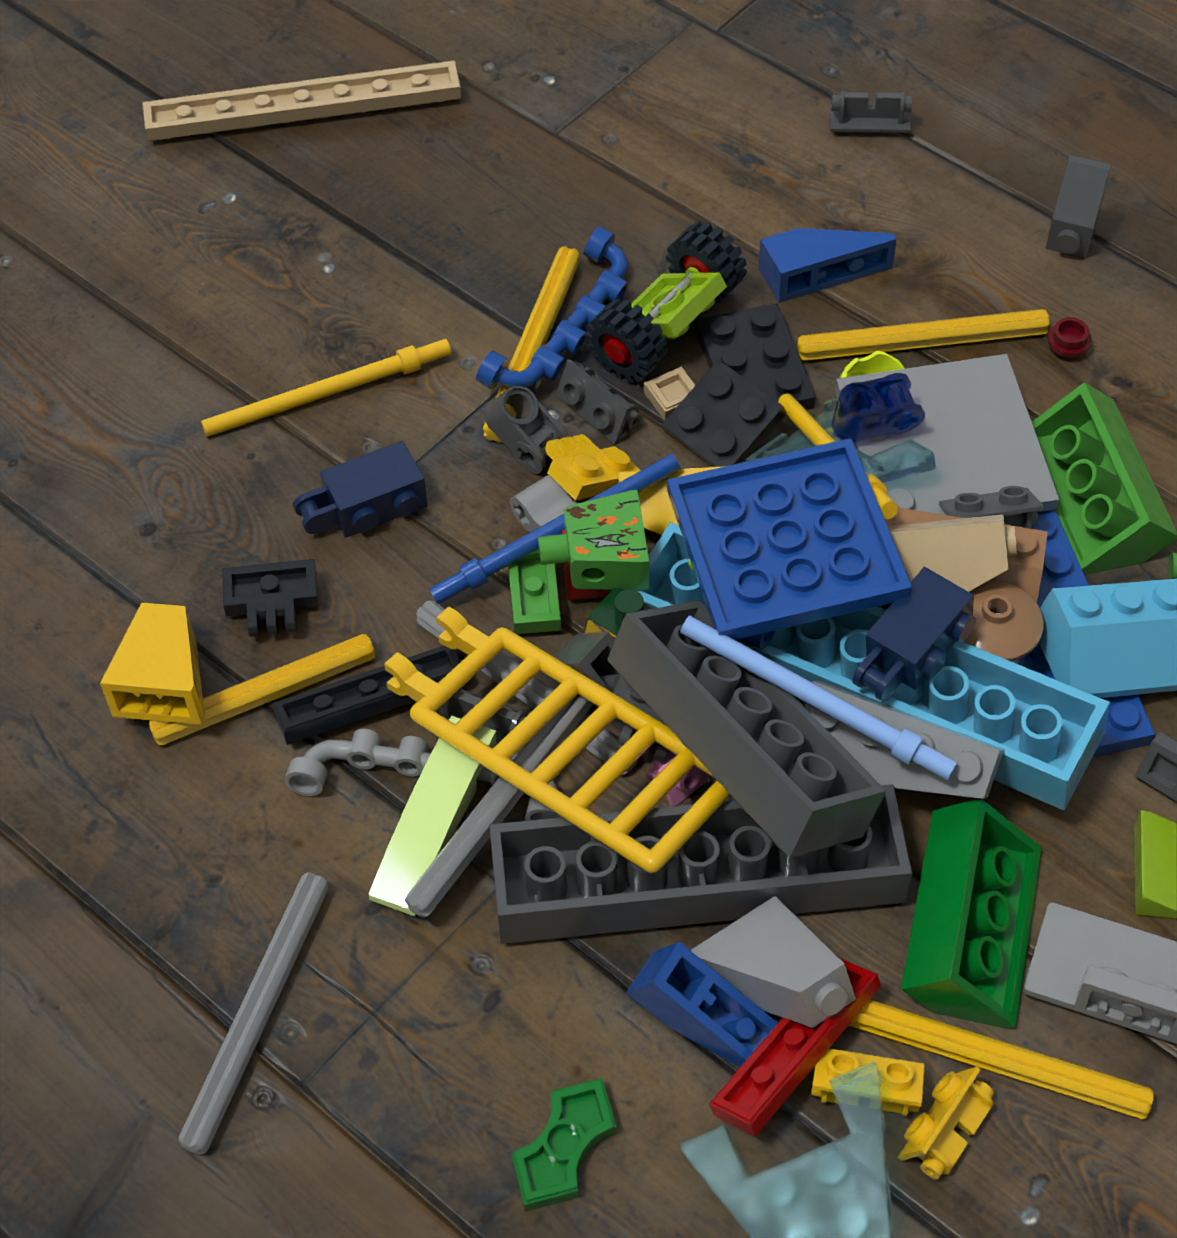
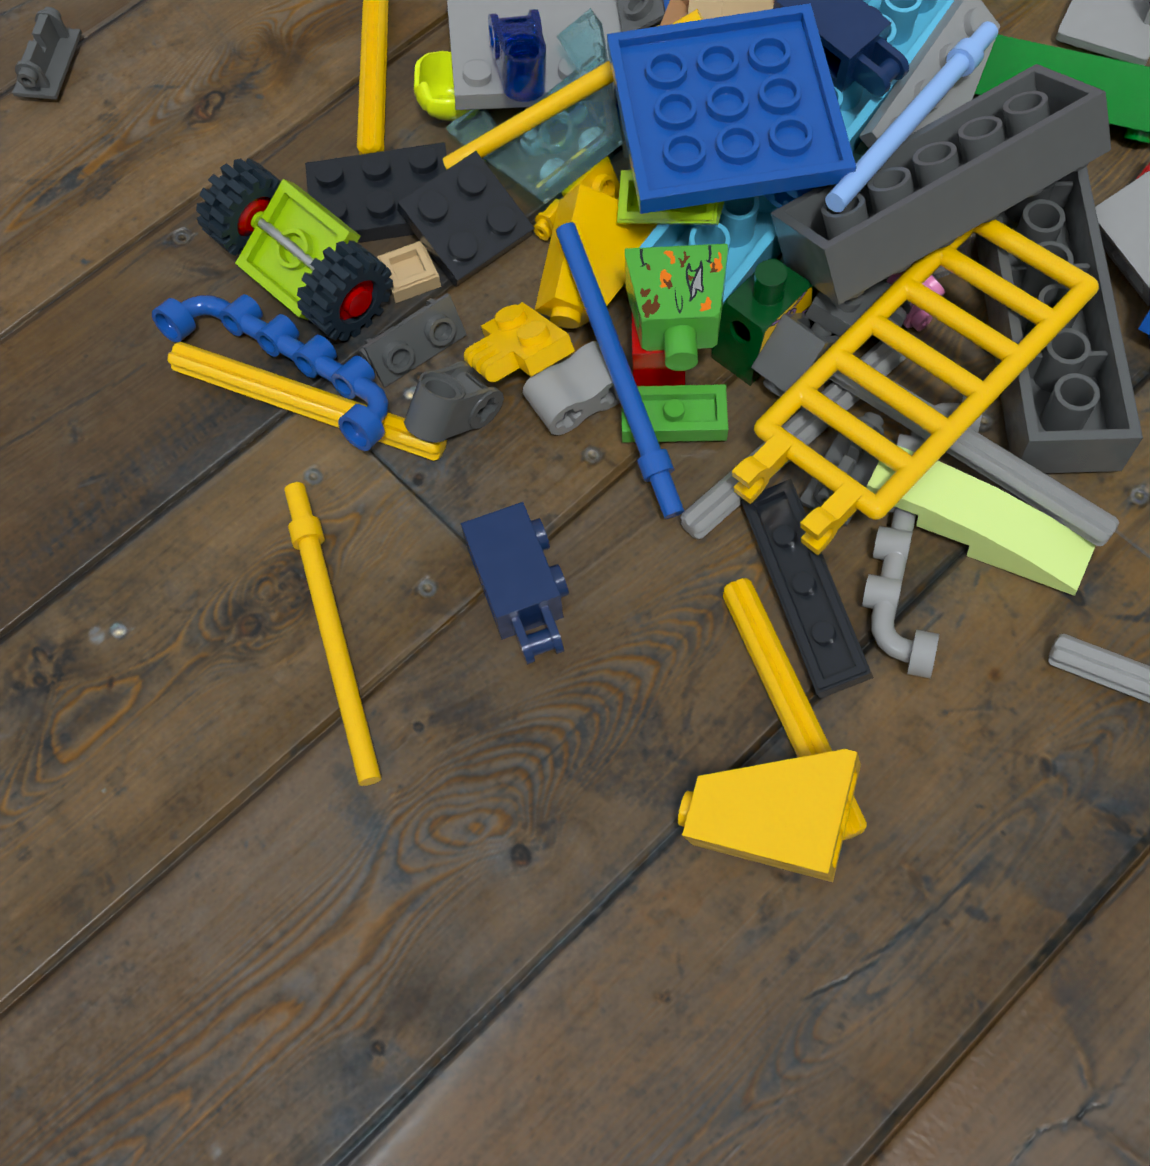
camera: 80 degrees left, 10 degrees up
(270, 593) = (658, 693): black hinge -> none
(818, 259) = (251, 118): blue slope -> none

